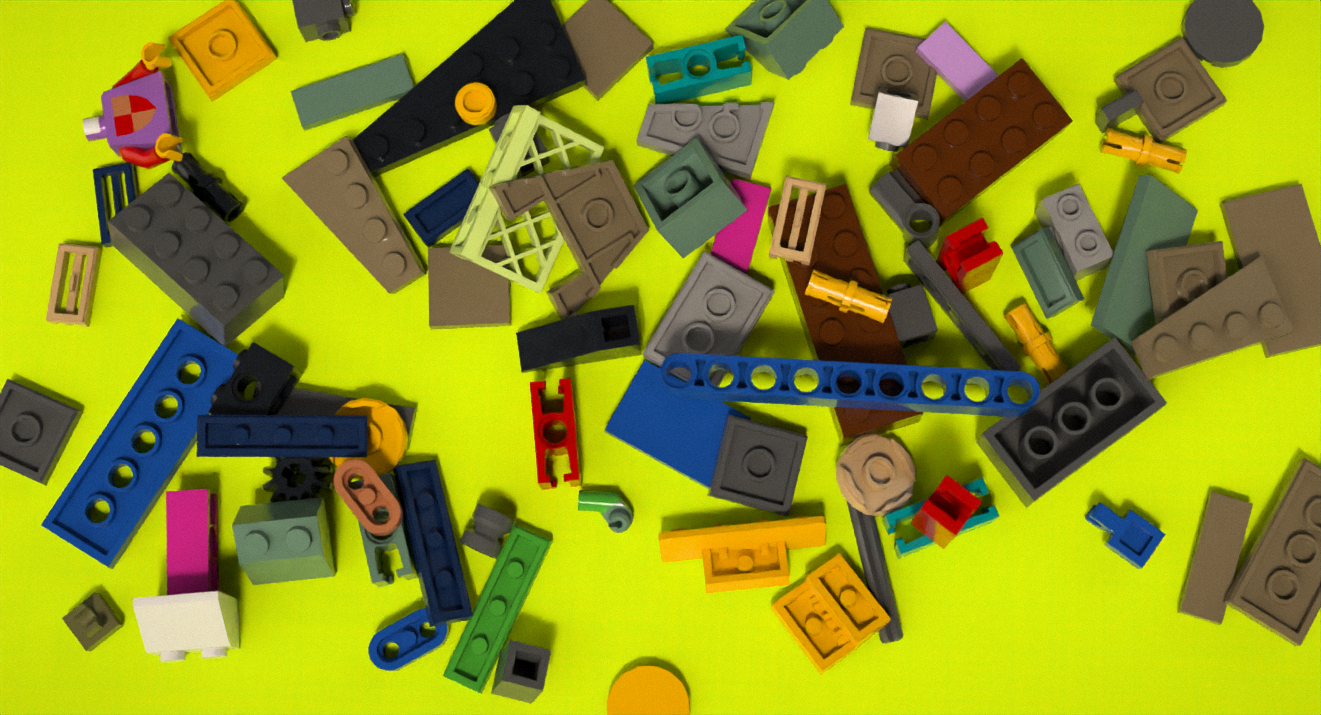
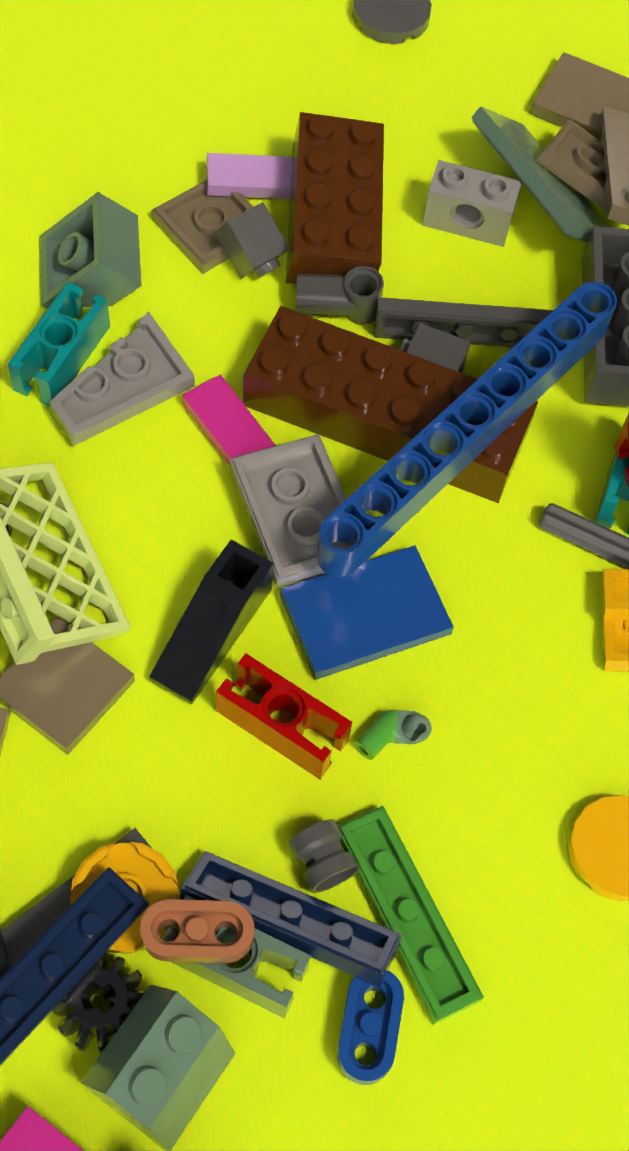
camera: 65 degrees left, 15 degrees down
(521, 672) = (500, 931): dark grey brick -> none
(592, 216) = (111, 520): dark tan wing -> none
(689, 198) = (170, 431): sand green slope -> none
(744, 553) = (538, 648): yellow bracket -> none
(757, 465) = (464, 573): dark grey tile -> none
(791, 253) = (303, 382): tan tile -> none
(848, 296) = (389, 366): yellow pin -> none
(875, 475) = (555, 488): tan tile -> none
(969, 256) = (433, 262): red piece -> none
(1036, 343) = (528, 295): yellow pin -> none
(1047, 272) = (485, 245): sand green tile -> none
(1119, 111) = (396, 107): dark grey tile -> none
(1143, 150) = (441, 119): yellow pin -> none
(1173, 90) = (409, 73): dark tan tile -> none

